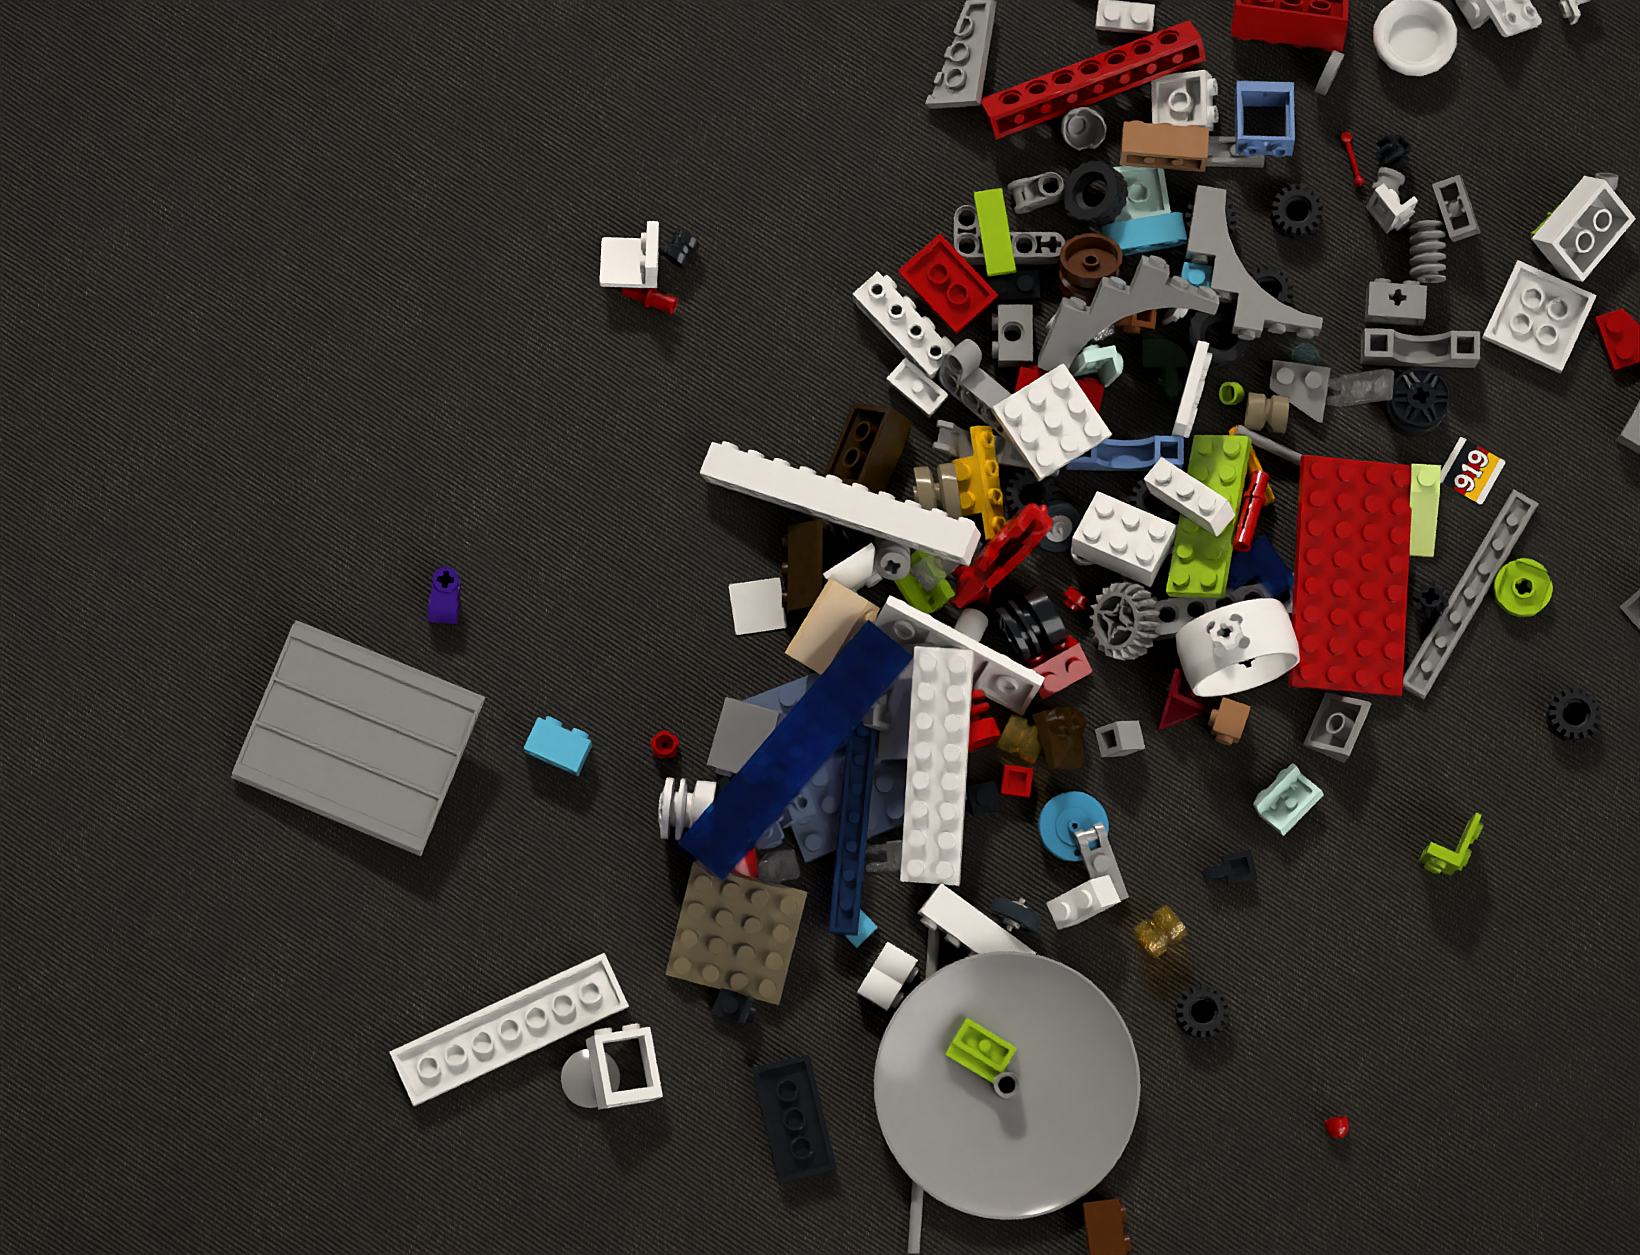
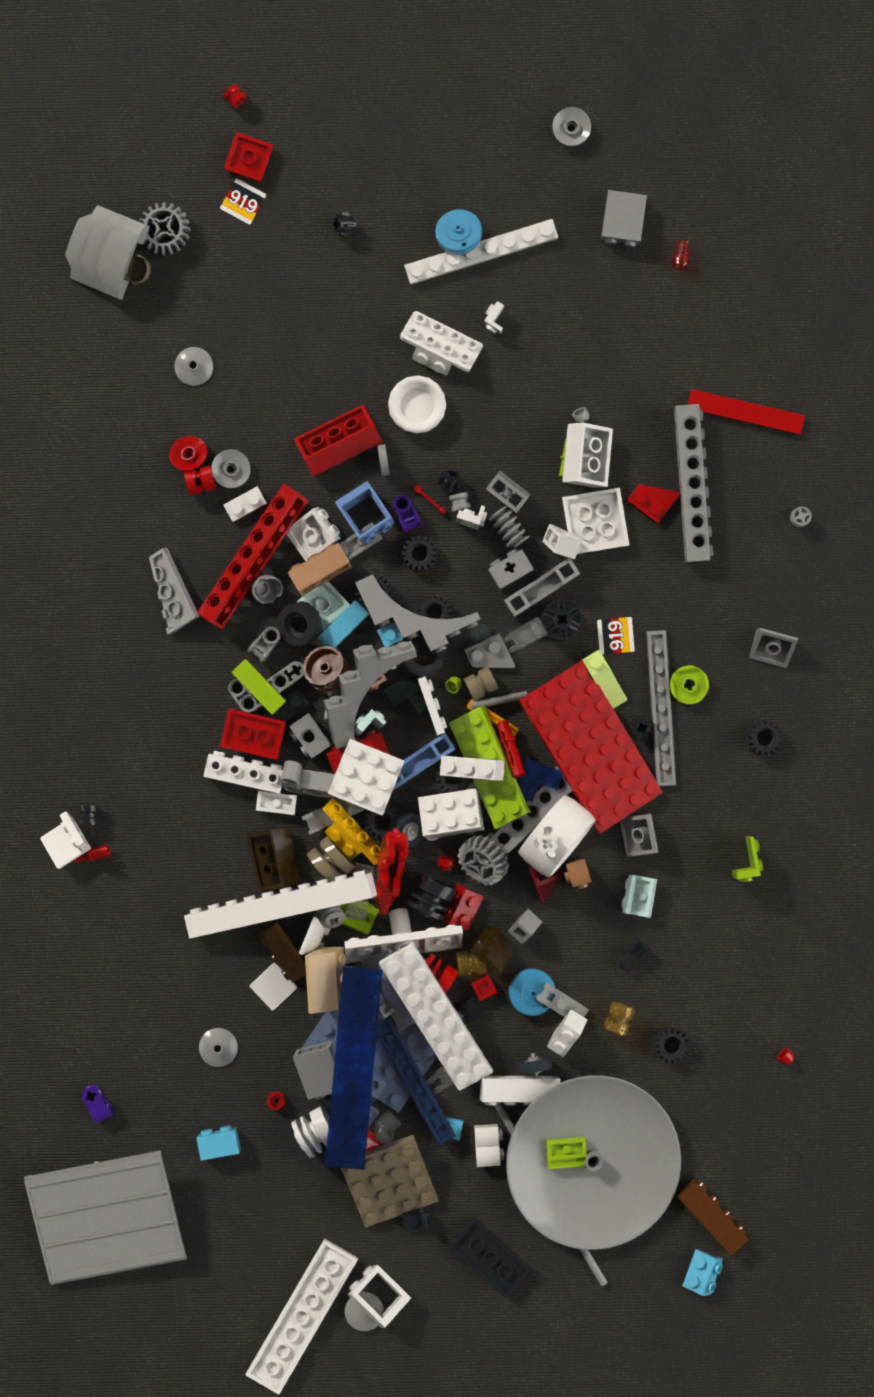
camera: 35 degrees left, 10 degrees up
(638, 647) = (225, 1040): none -> light grey dish
(1313, 158) = (407, 514): none -> dark purple piece
(1483, 310) = (562, 542): none -> white slope

